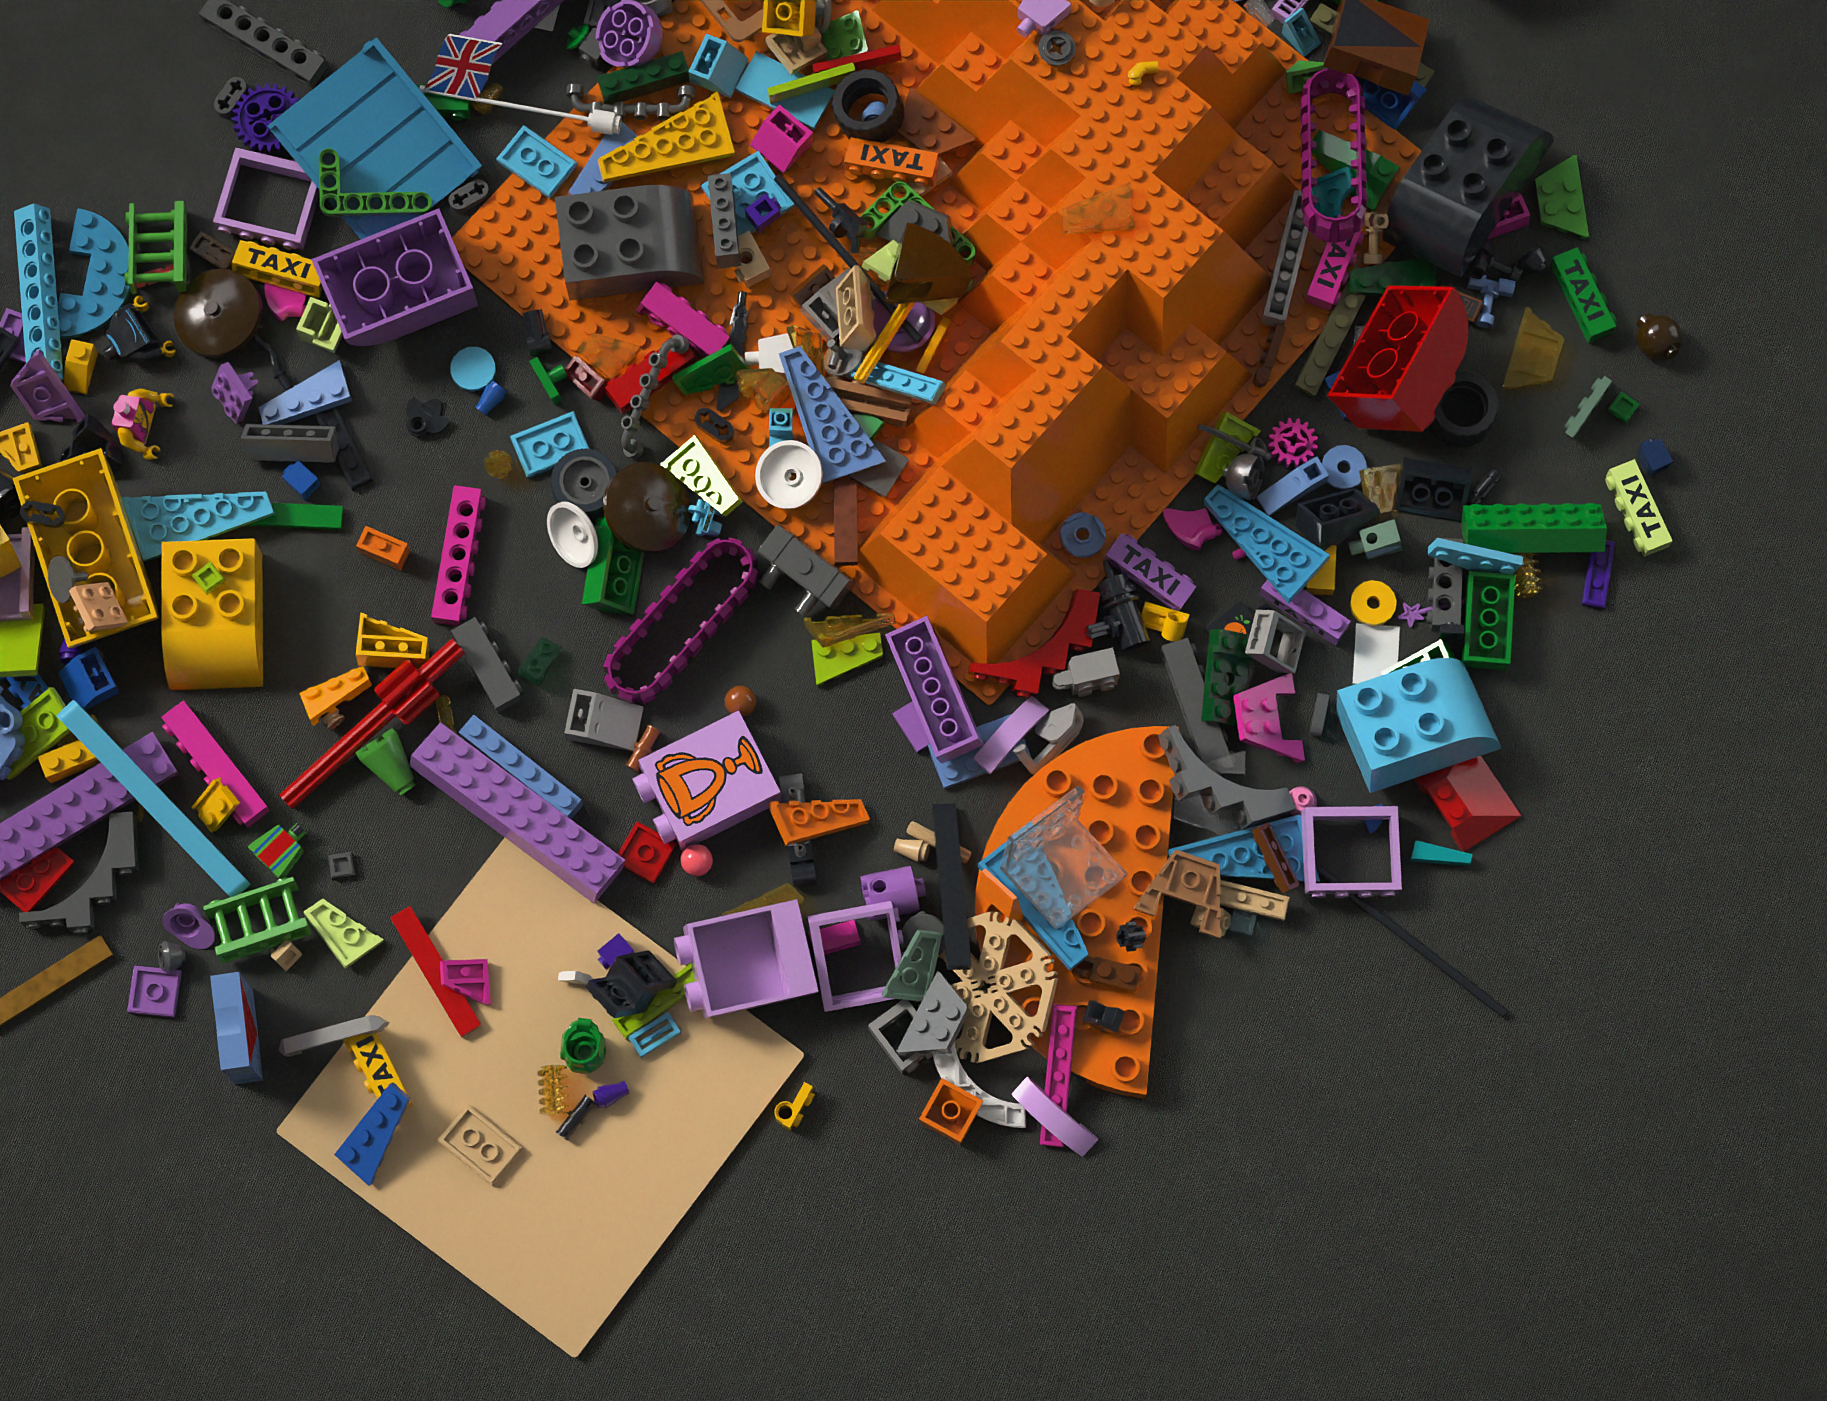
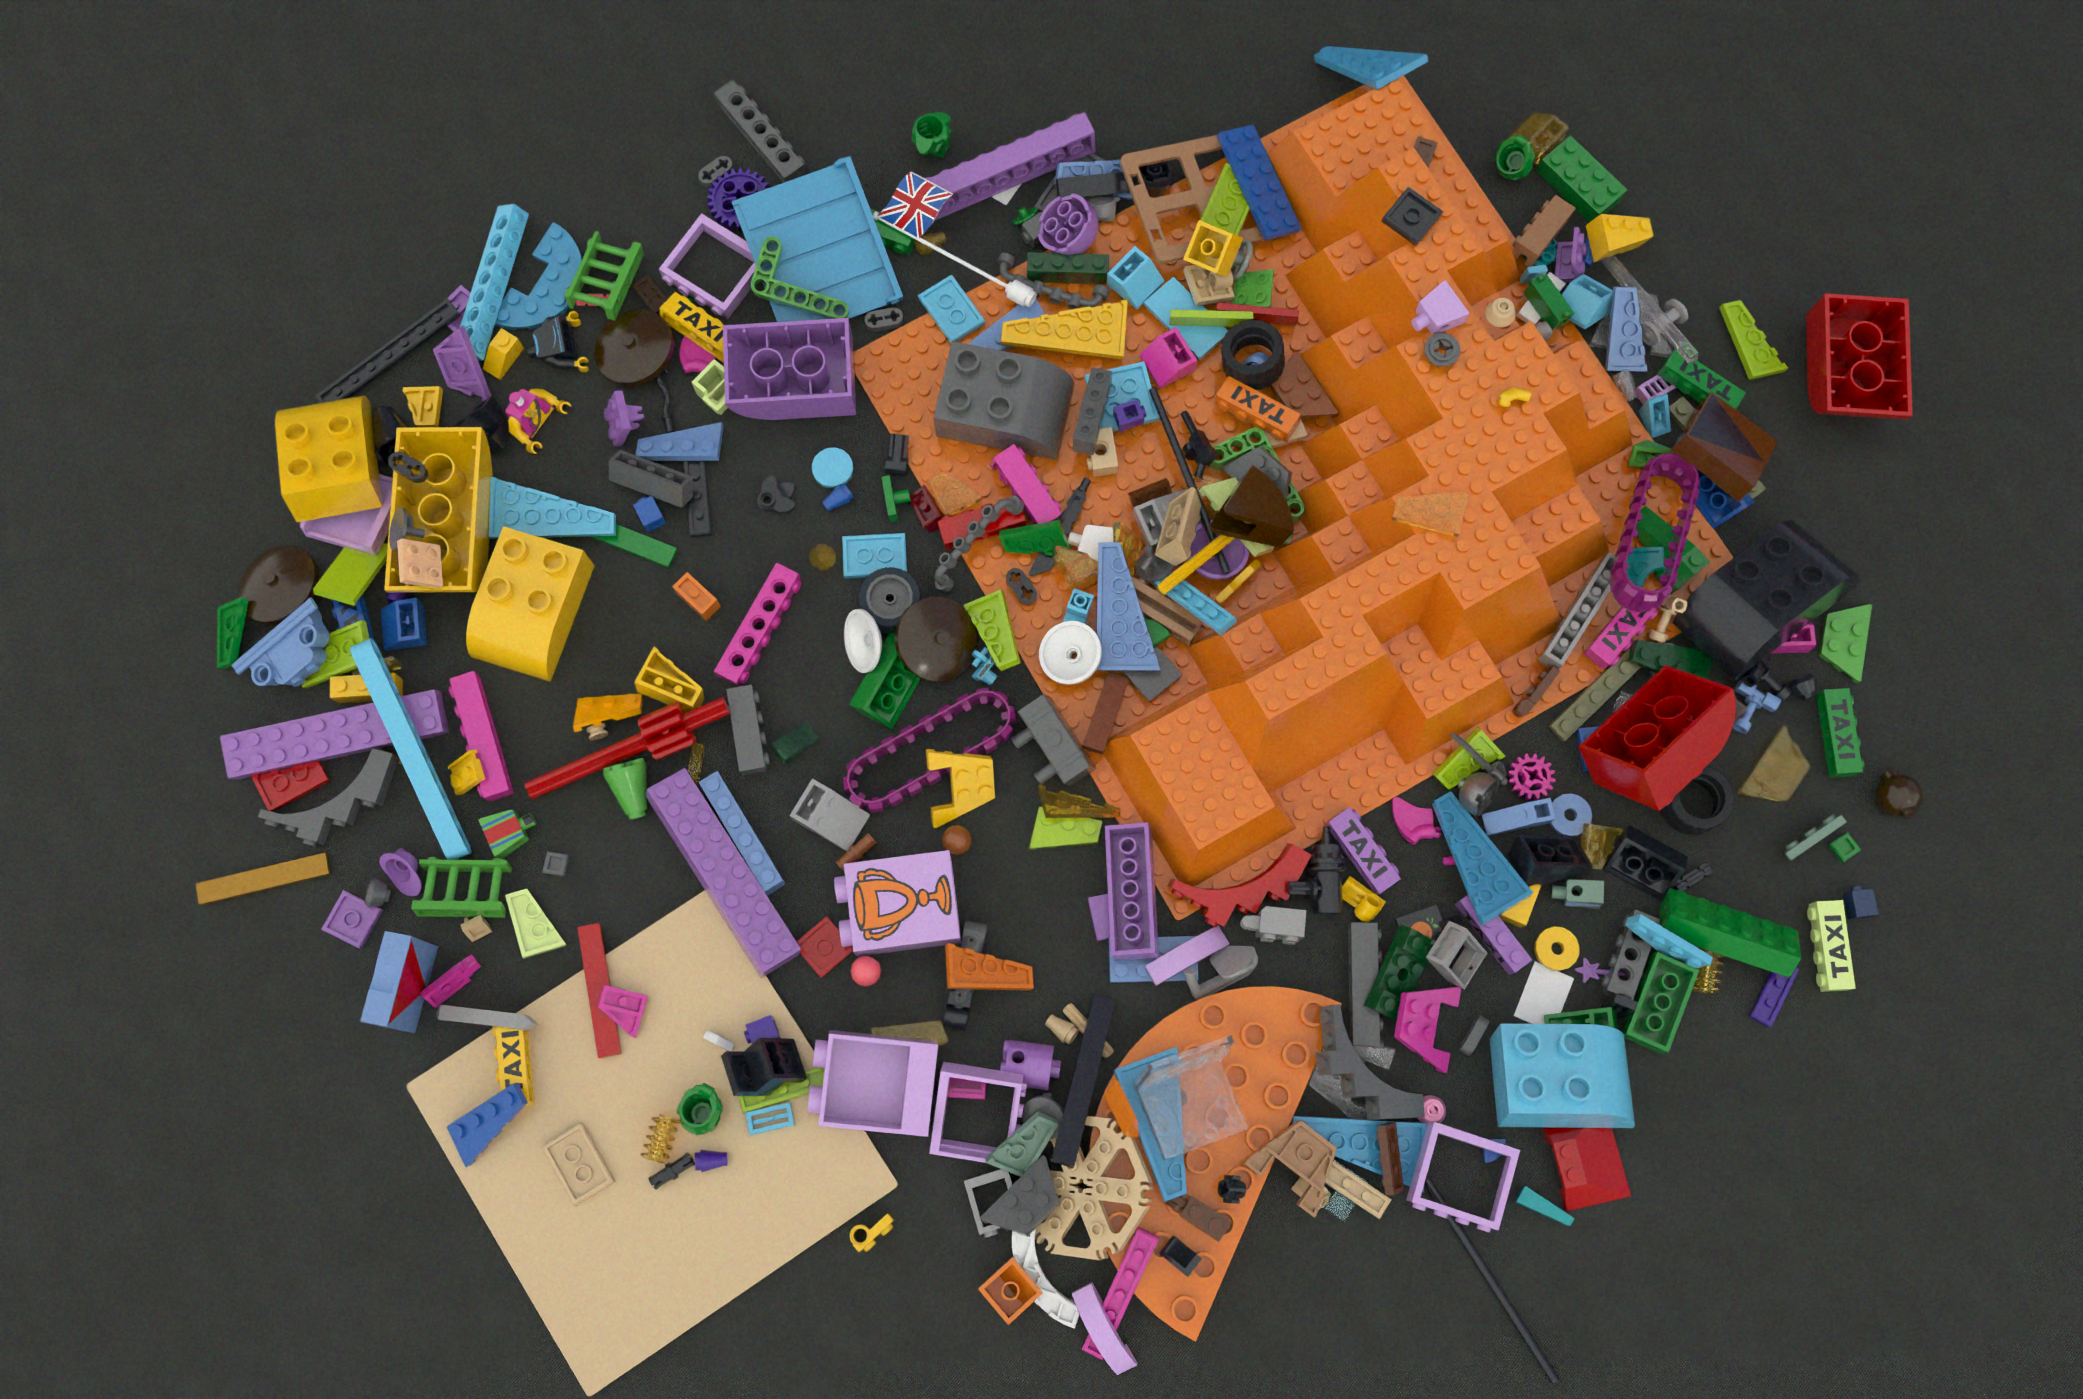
camera: 20 degrees right, 0 degrees up
(208, 578) = (528, 571): lime tile -> none
(281, 1015) = (450, 981): none -> dark pink hinge
(734, 640) = (970, 783): none -> yellow wing
(1082, 548) = (1304, 804): medium blue tile -> none

